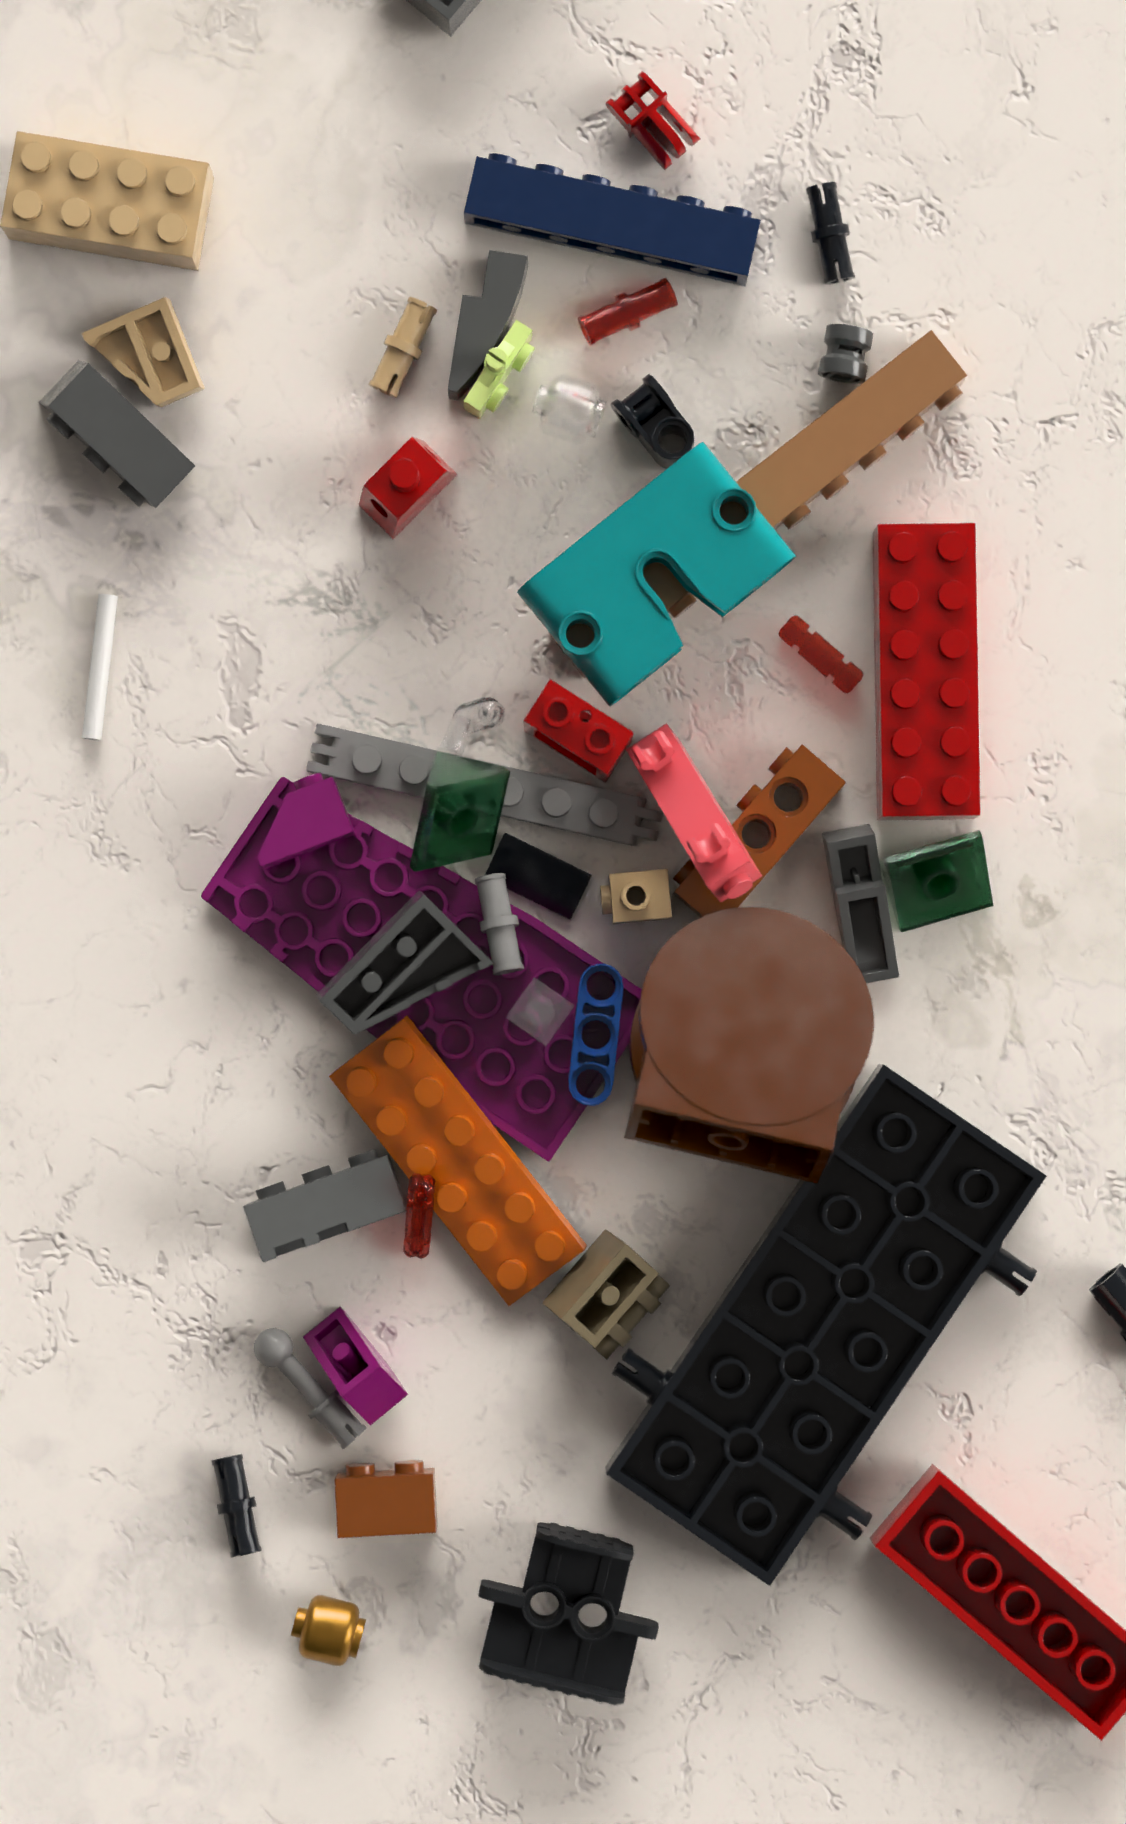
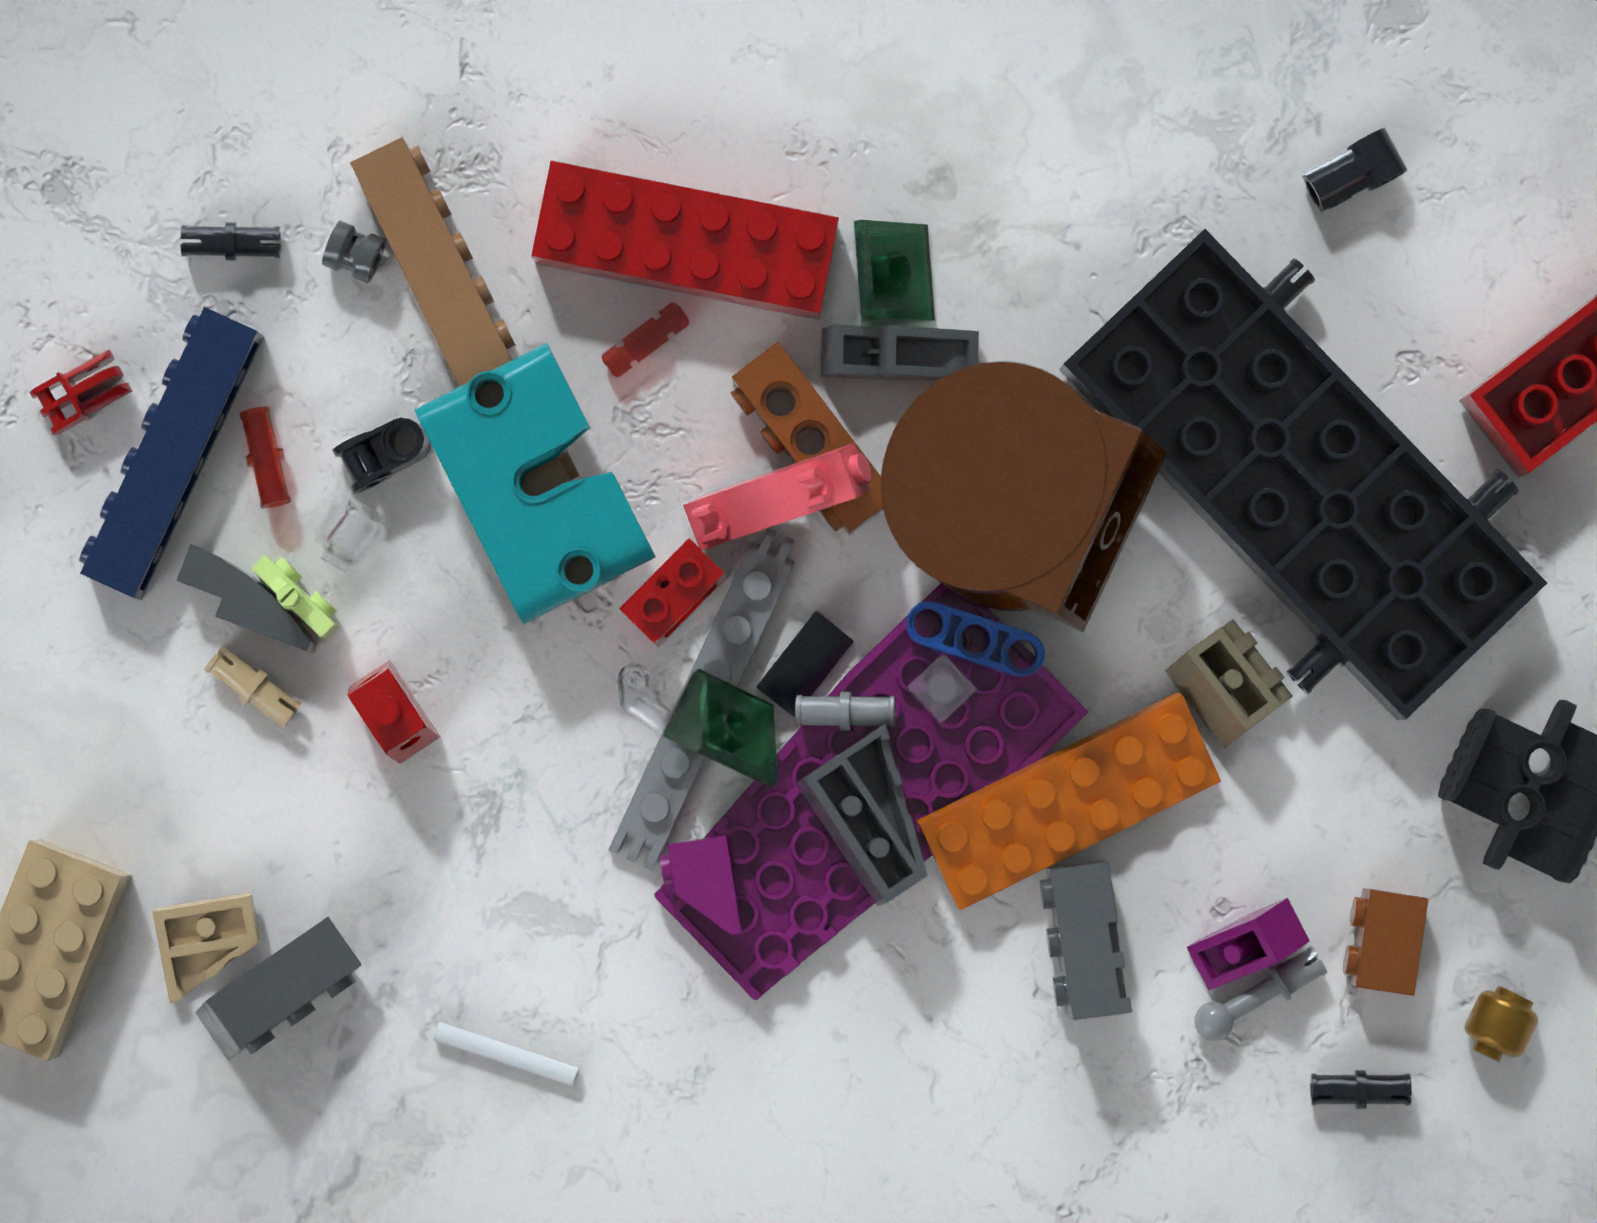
camera: 75 degrees left, 0 degrees up
(419, 1215) = (1115, 850): clear red axle -> none
(637, 896) = (846, 570): tan brick -> none

